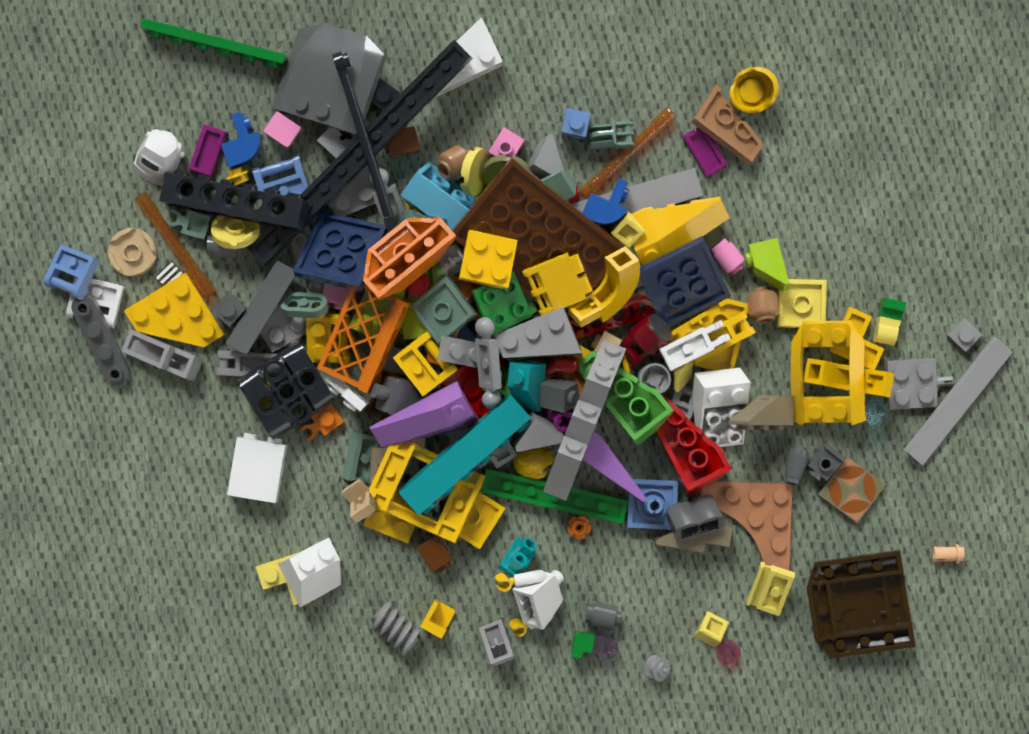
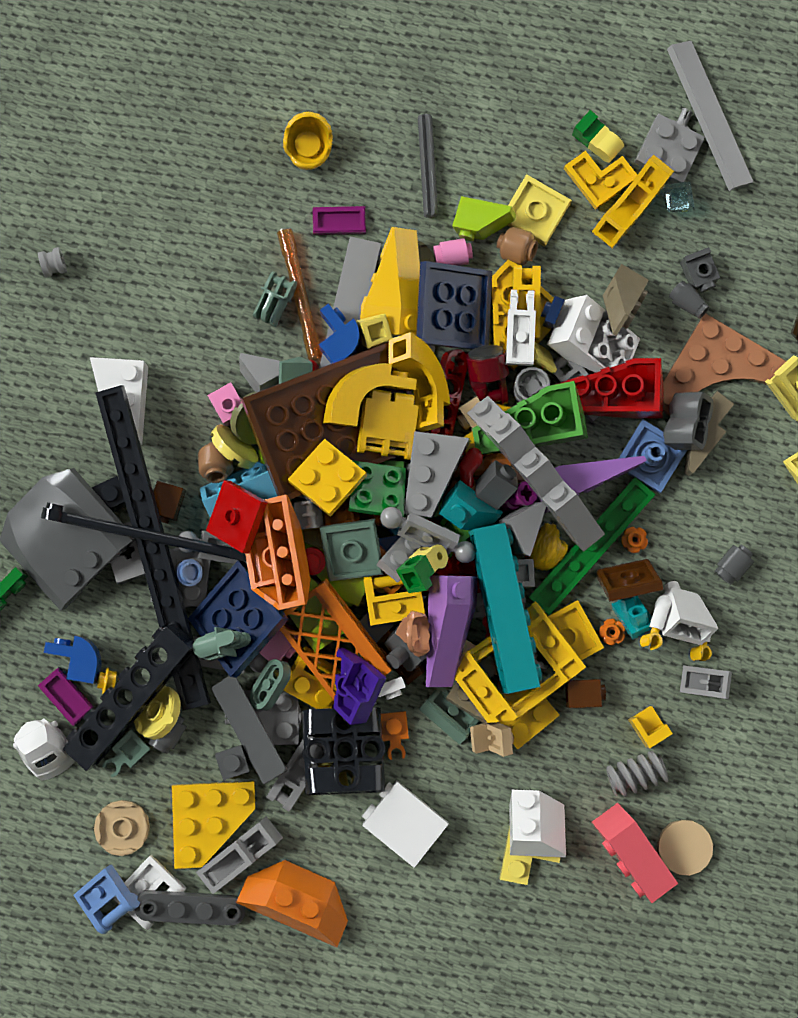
camera: 65 degrees left, 5 degrees down
(152, 212) = (94, 785): clear orange piece -> none
(152, 418) = (297, 900): none -> orange wedge
(168, 273) = (163, 803): tile -> none
(282, 129) = (87, 611): bright pink panel -> none
(292, 184) = (143, 637): medium blue plate -> none
(313, 249) = (220, 643): none -> sand green arm
(332, 659) = (634, 853): none -> coral wedge
(338, 374) = (356, 687): none -> dark purple slope
(356, 192) = (189, 572): none -> medium blue plate
(360, 696) = (685, 847): none -> tan tile
(405, 396) = (415, 633): none -> nougat piece
(418, 206) = (236, 516): none -> red plate
(459, 371) = (420, 566): none -> green leg
(491, 544) = (604, 631): none -> orange plate
(543, 539) = (629, 580): none -> reddish brown plate
(568, 239) = (349, 392): none -> yellow arch
(575, 124) = (244, 326): medium blue brick -> none
(593, 643) = (756, 588): leg -> none
(721, 123) = (323, 189): medium nougat wing -> none
(722, 361) = (551, 312): none -> dark blue plate
(789, 196) = (427, 163): none -> dark grey axle
(829, 408) = (651, 236): yellow wedge -> none
(851, 489) = (741, 260): tile -> none
(964, 334) = (649, 76): light grey plate -> none

